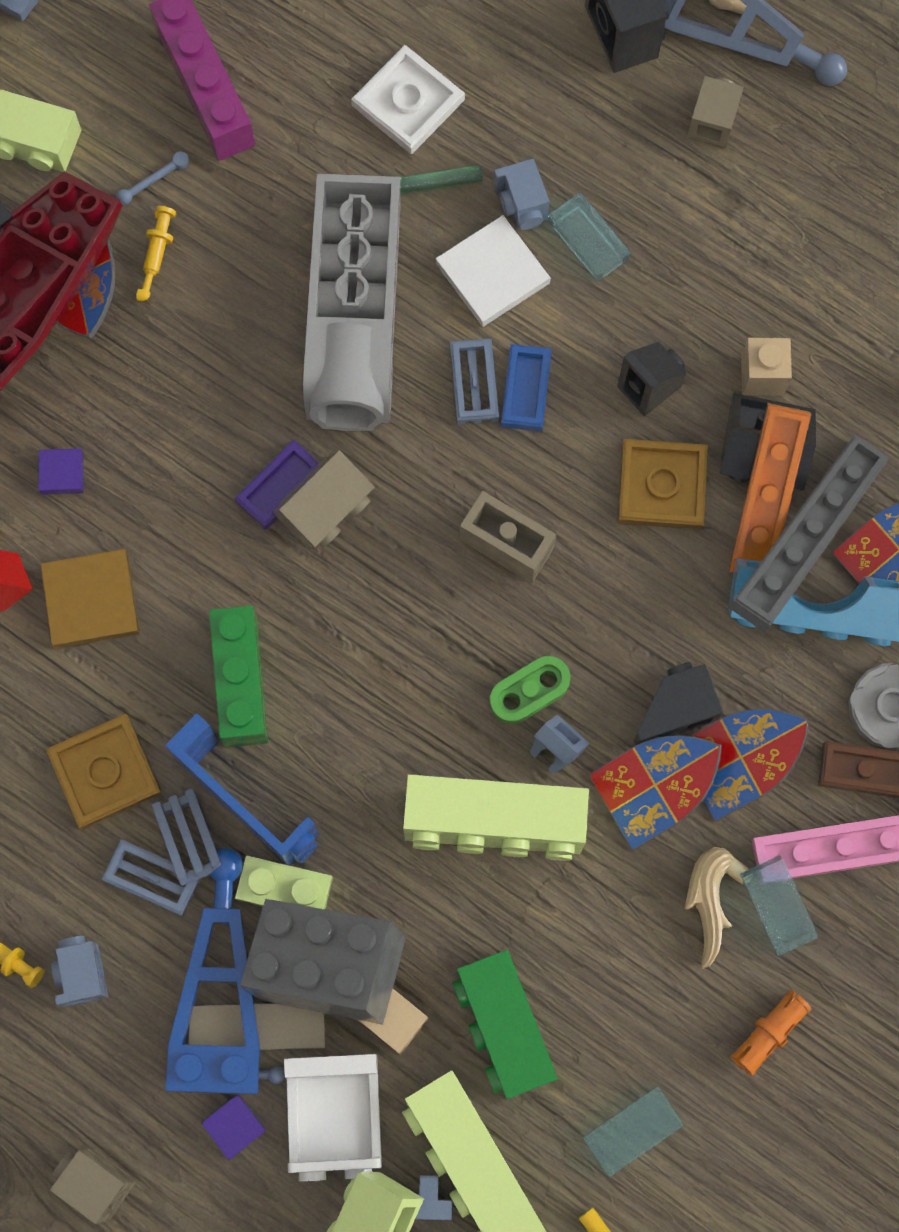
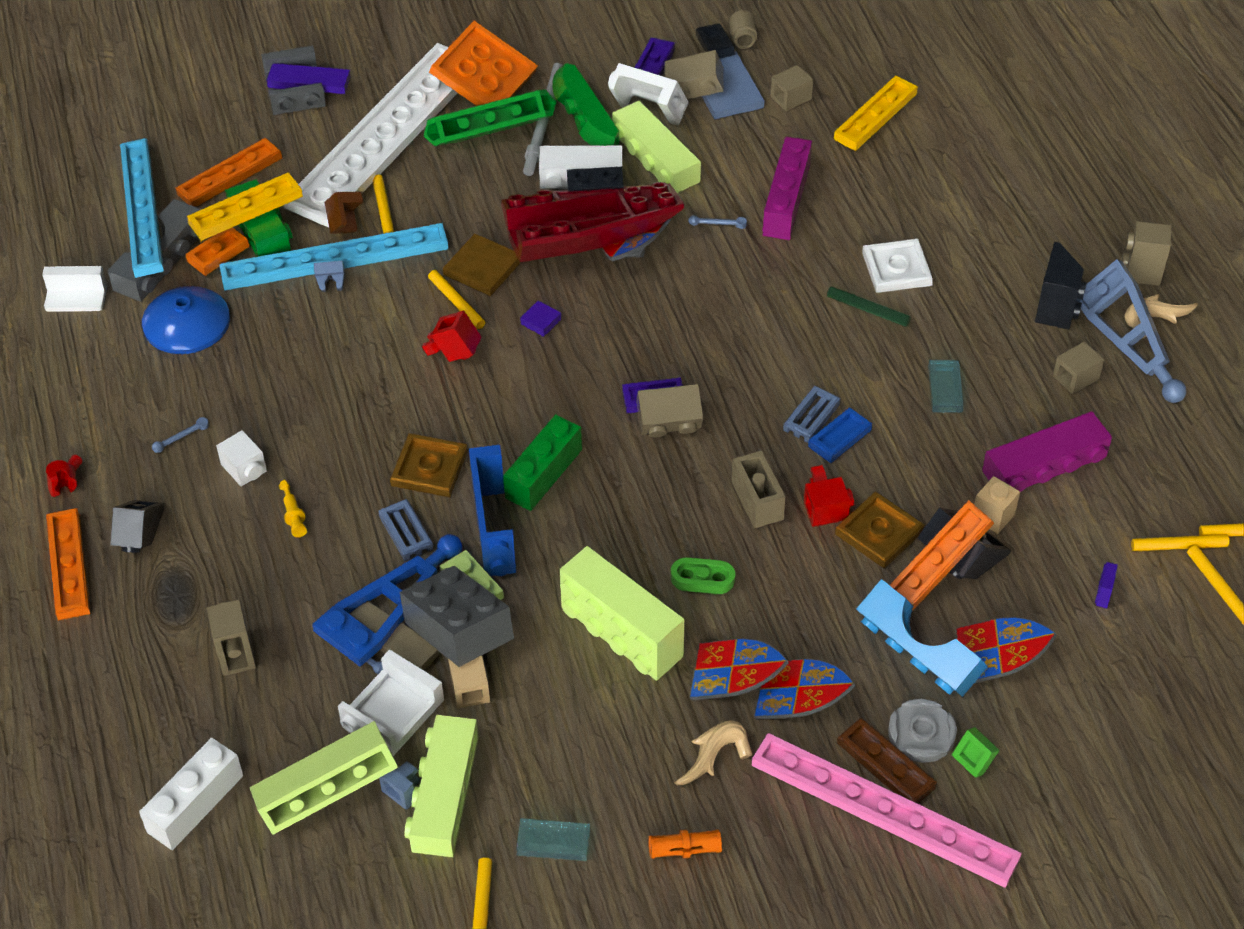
camera: 40 degrees right, 25 degrees down
(78, 972) = (322, 543): sand blue brick -> none
(89, 598) = (499, 383): pearl gold tile -> none
(158, 240) = (694, 247): yellow piece -> none
(175, 806) = (447, 505): sand blue tile -> none
(233, 1127) = (331, 675): dark purple tile -> none
(352, 302) = (770, 329): light grey brick -> none
(492, 270) = (872, 369): white tile -> none
(504, 1025) = (528, 727): green brick -> none
(522, 194) = (922, 340): sand blue brick -> none
(561, 741) = (696, 610): sand blue tile -> none
(583, 491) = (826, 499): none -> red brick
(650, 376) = (918, 465): black slope -> none
(681, 703) = (787, 632): black slope -> none
(767, 256) = (1049, 452): none -> magenta brick
(779, 905) = (751, 778): clear light blue tile -> none
(808, 534) = (943, 593): dark grey tile -> none

